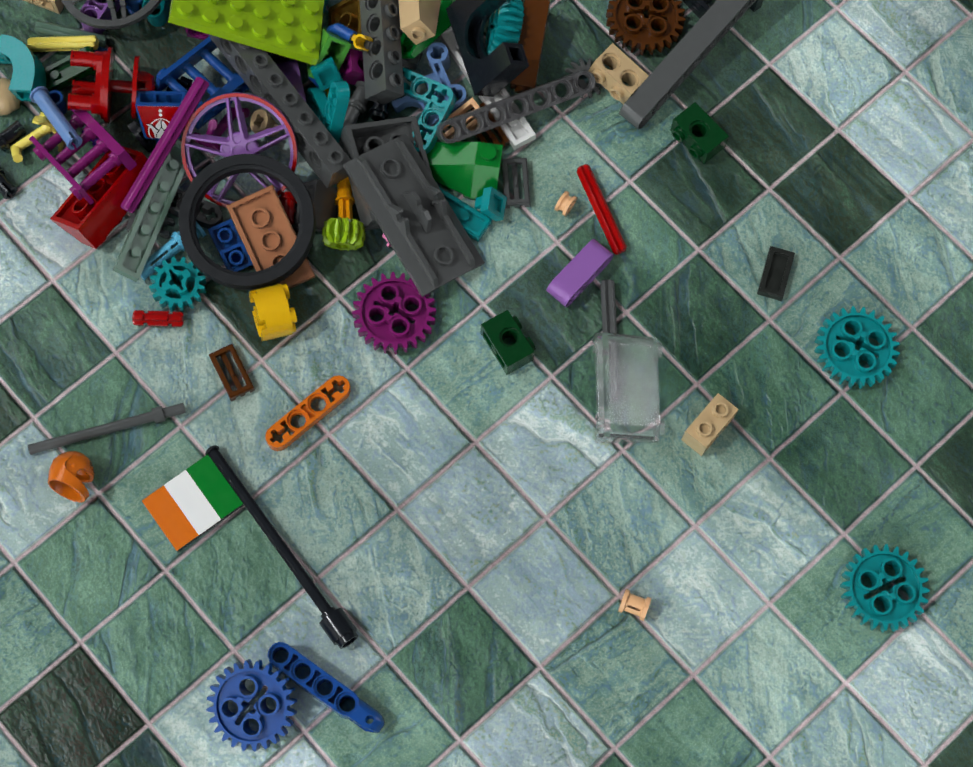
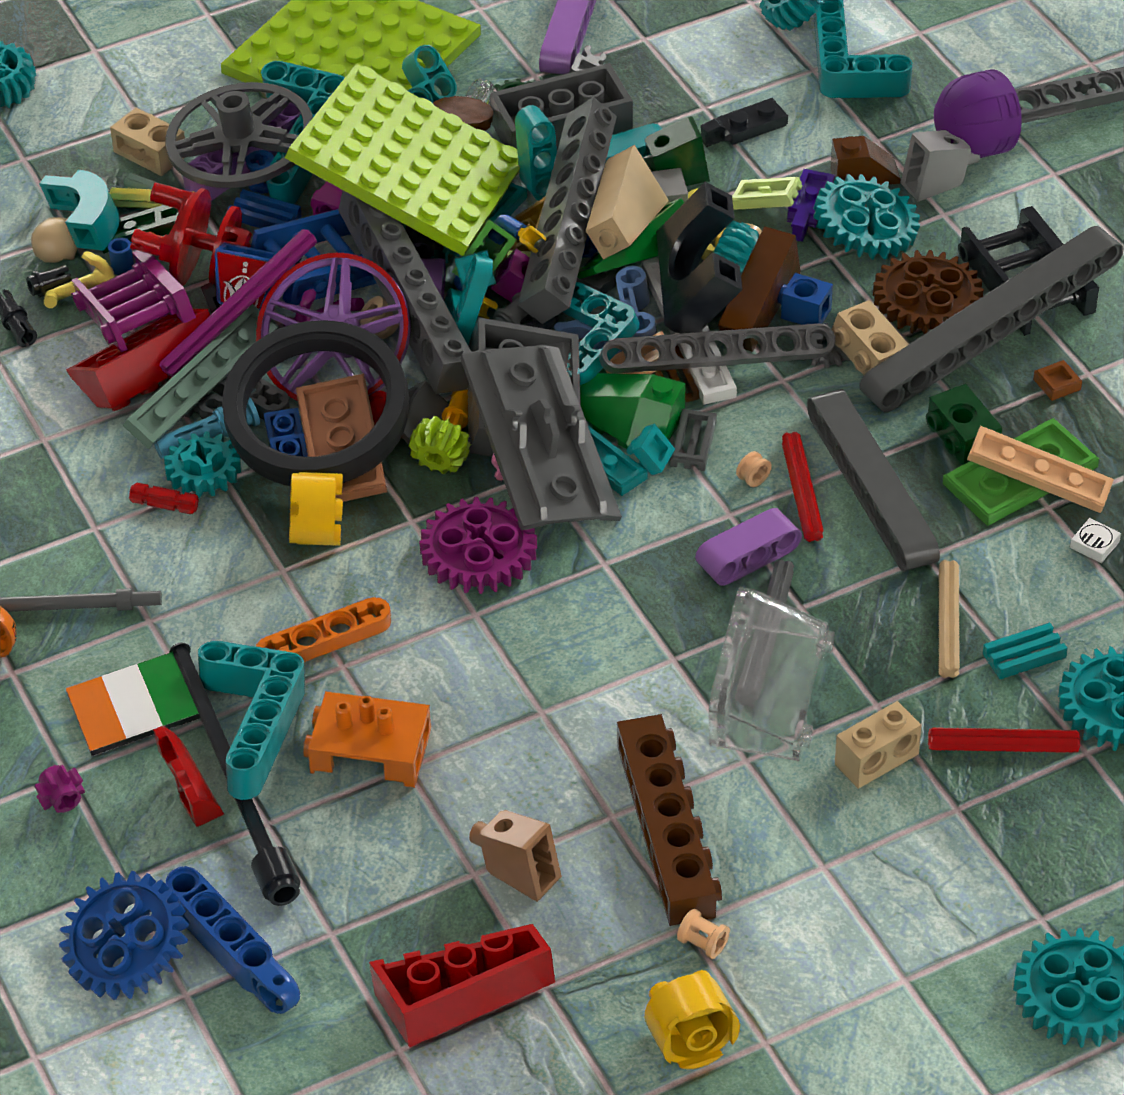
camera: 20 degrees right, 25 degrees down
(41, 97) = (103, 238): medium blue pin -> none
(150, 32) = (265, 209): none -> blue tile
(167, 592) = (59, 788): none -> magenta gear
(240, 390) = (241, 594): reddish brown tile -> none
(255, 563) = (191, 785): none -> red slope
(292, 495) = (277, 689): none -> teal beam
(366, 497) = (369, 731): none -> orange piece
(488, 687) = (462, 982): none -> red wedge
(495, 572) = (519, 852): none -> medium nougat torso
(509, 356) = (623, 603): dark green brick -> none
(562, 34) = (805, 300): none -> blue brick
(564, 454) = (667, 819): none -> reddish brown brick
(648, 195) = (873, 480): none -> dark grey beam
(648, 681) = (691, 1020): none -> yellow brick
(728, 302) = (949, 619): none -> tan axle
(744, 163) = (997, 495): none -> bright green tile
(750, 76) = (1057, 380): none -> dark orange tile
(760, 164) = (1040, 469): none -> light nougat tile
(775, 273) = (1028, 599): pearl dark grey tile -> none
(787, 397) = (1003, 740): none -> red axle
(799, 305) = (1022, 645): none -> teal tile
(808, 213) = (1095, 540): none -> white tile

